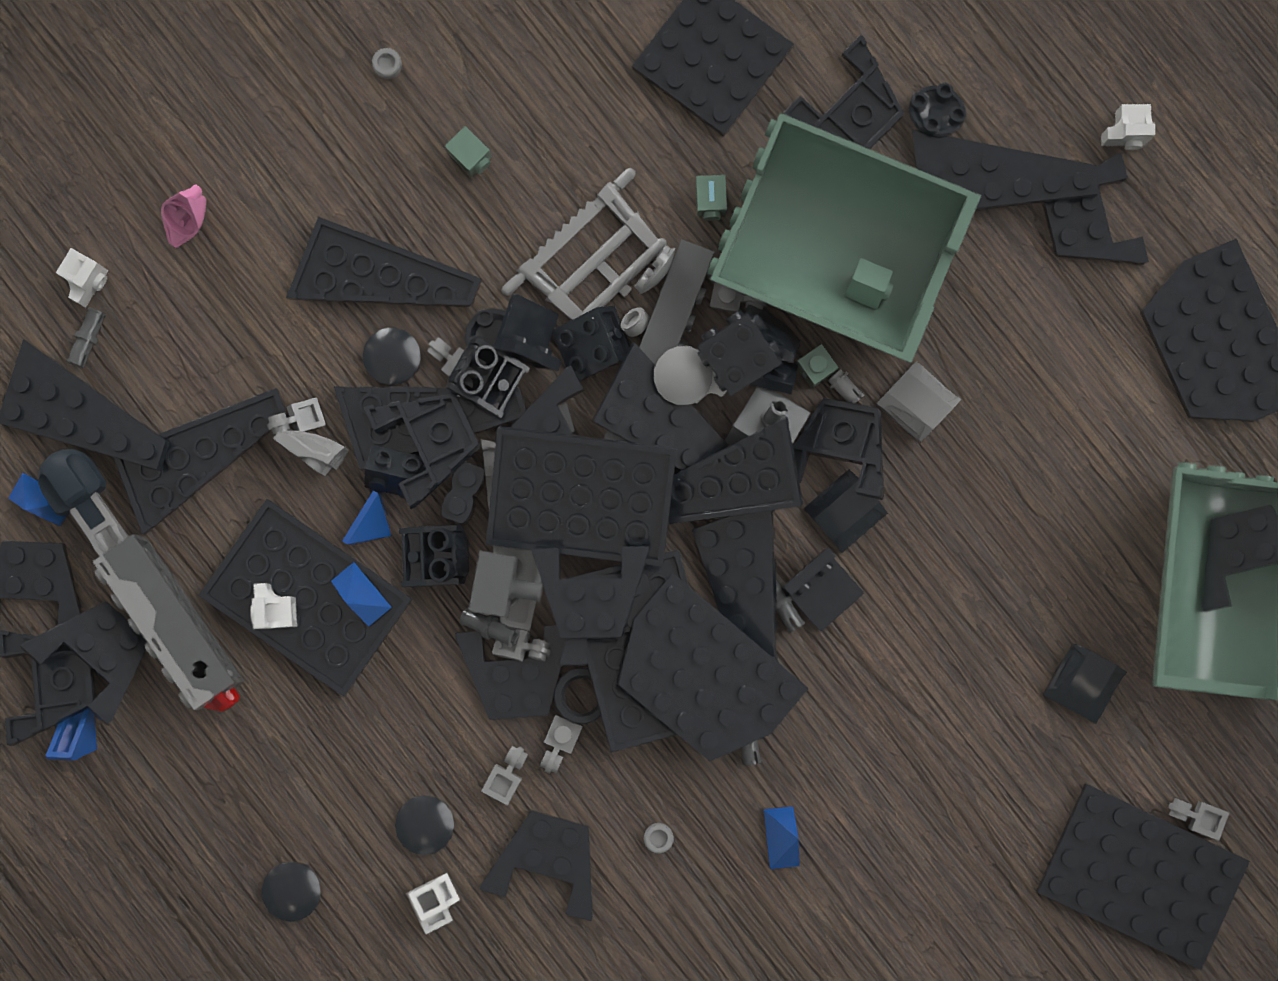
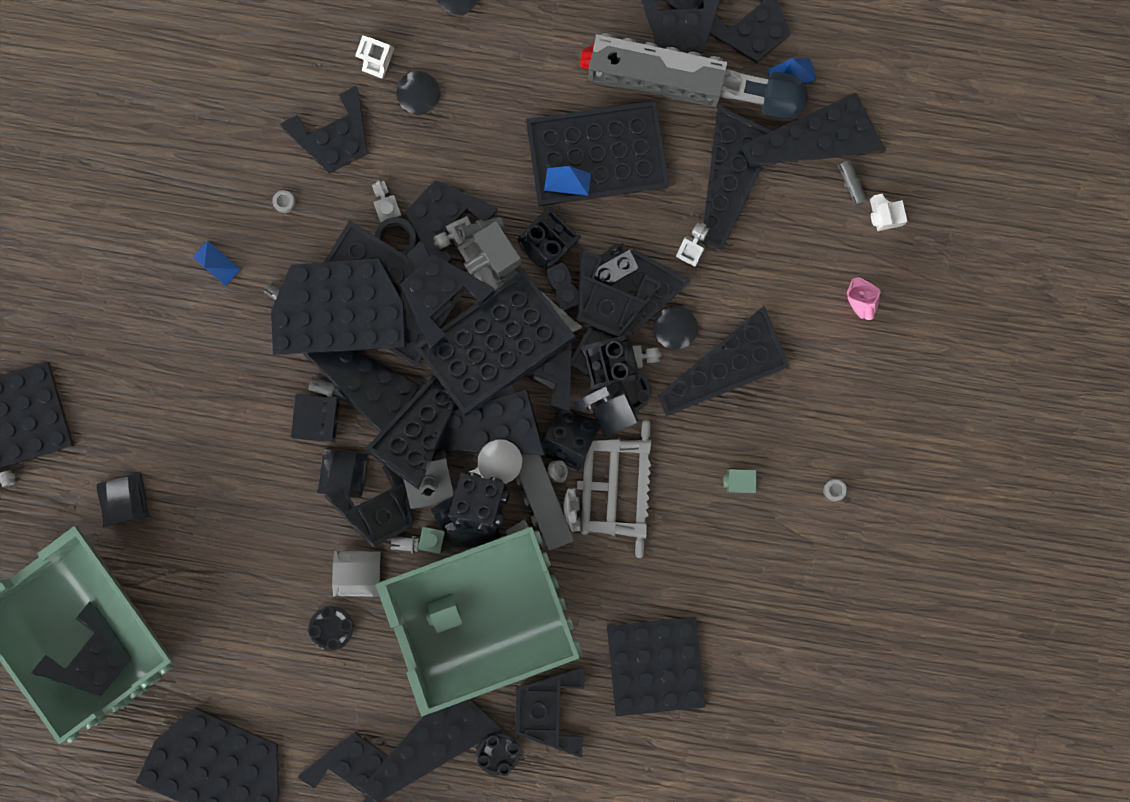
camera: 135 degrees right, 0 degrees up
(271, 610) = (607, 127): white brick -> none
(313, 449) = (667, 234): light grey slope -> none
(370, 522) = (599, 225): blue slope -> none
(503, 782) = (396, 154): light grey plate -> none
(711, 196) = (580, 582): sand green brick -> none
(990, 373) = (330, 628): none -> black dish

